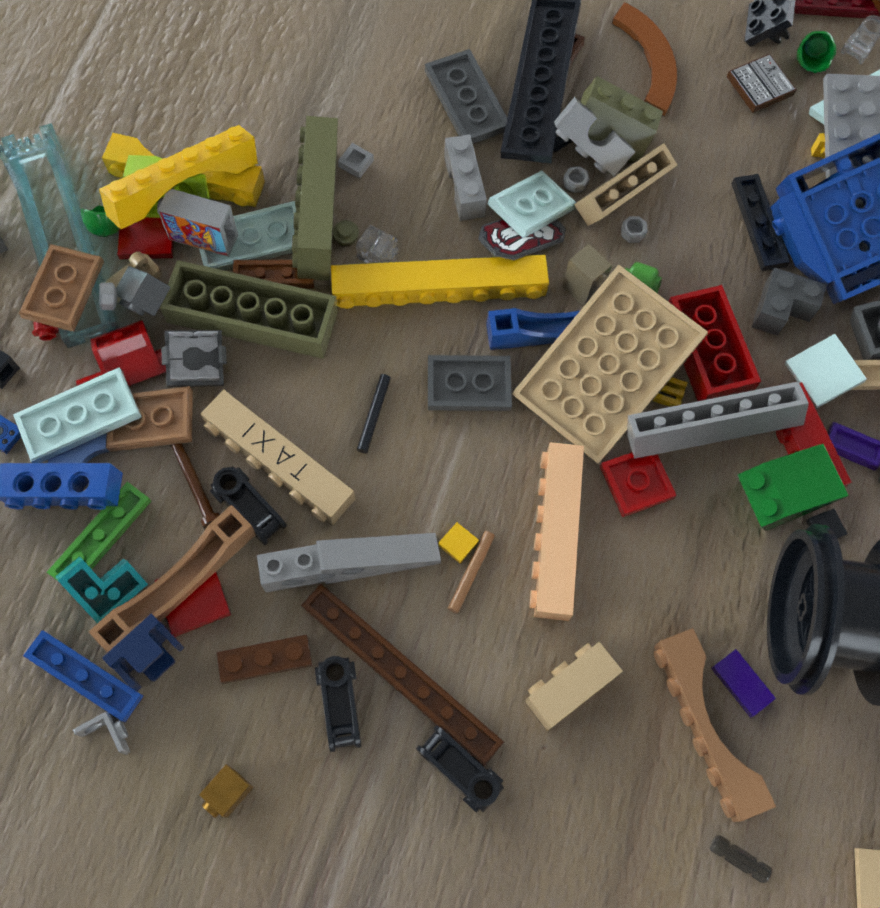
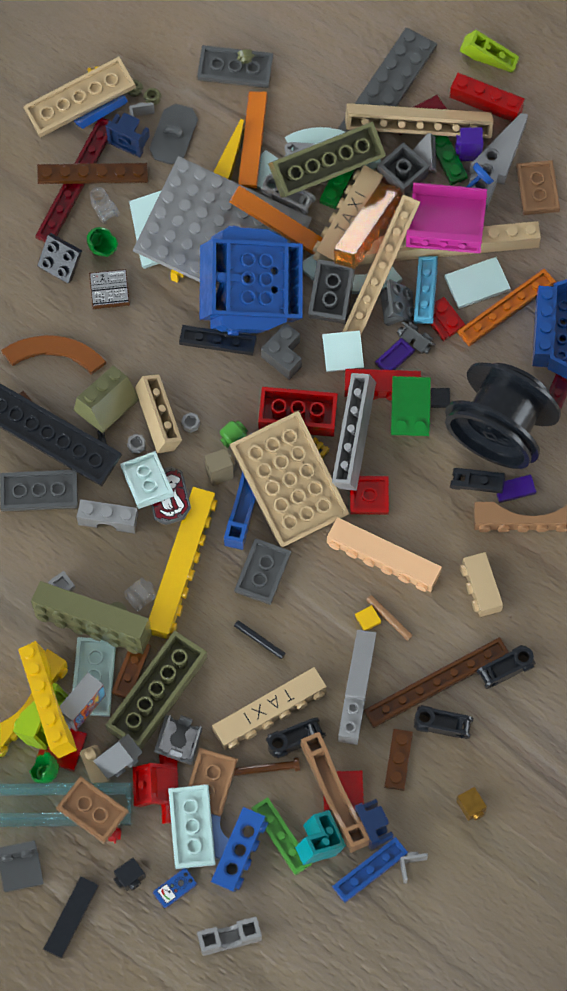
camera: 65 degrees left, 0 degrees up
(107, 296) = (114, 779): light grey tile -> none
(608, 153) = (129, 415): light grey arch -> none
(729, 623) = (478, 480): none -> black plate

